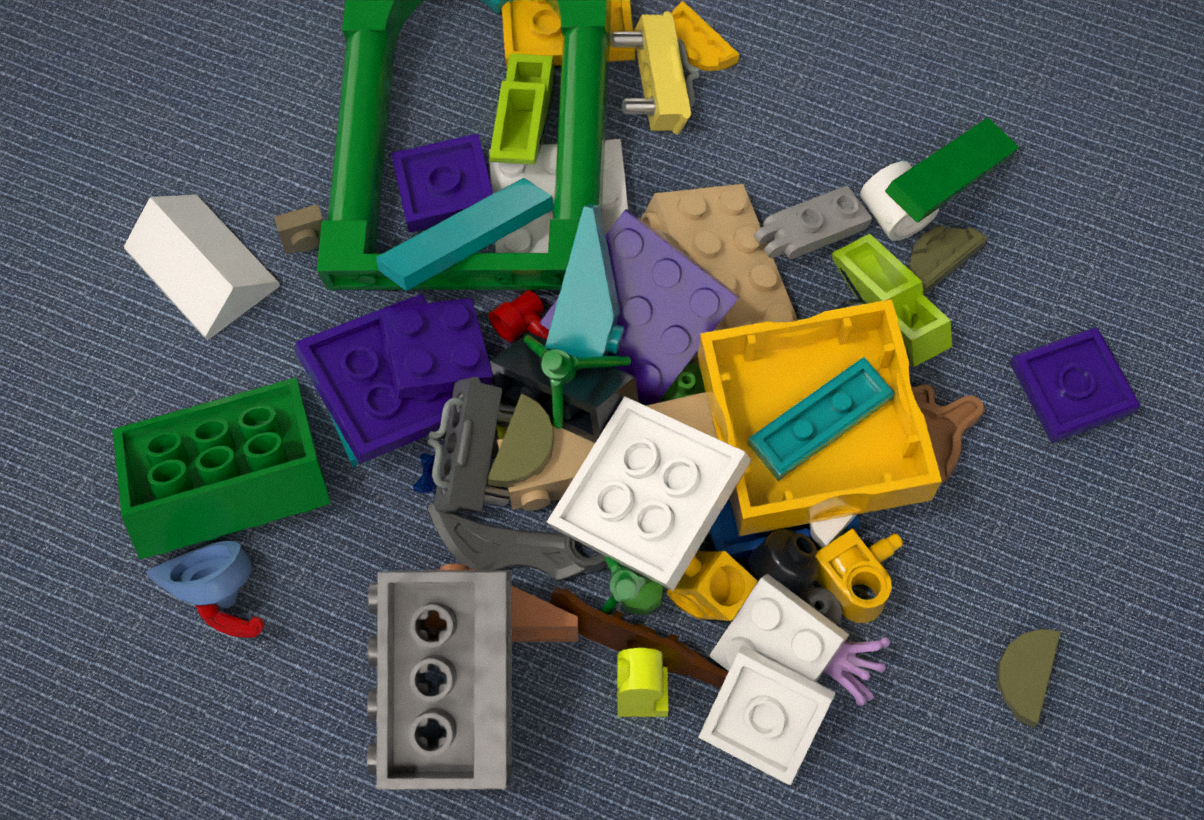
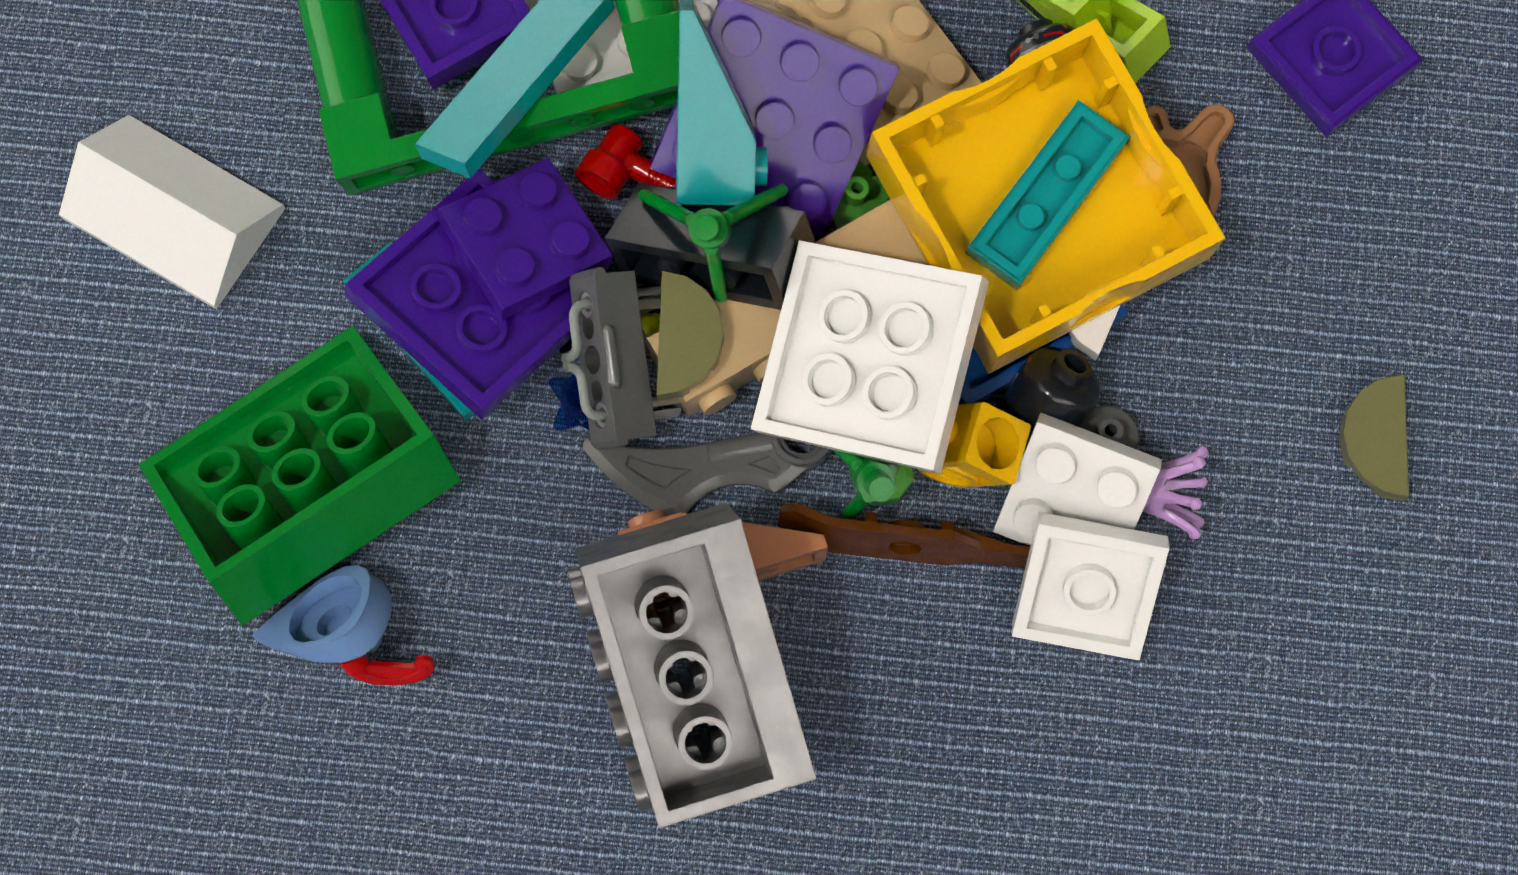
camera: 20 degrees left, 10 degrees up
(300, 229) = (290, 126): dark tan plate -> none
(641, 683) = (925, 594): neon yellow leg -> none
(852, 563) = (1136, 362): yellow piece -> none

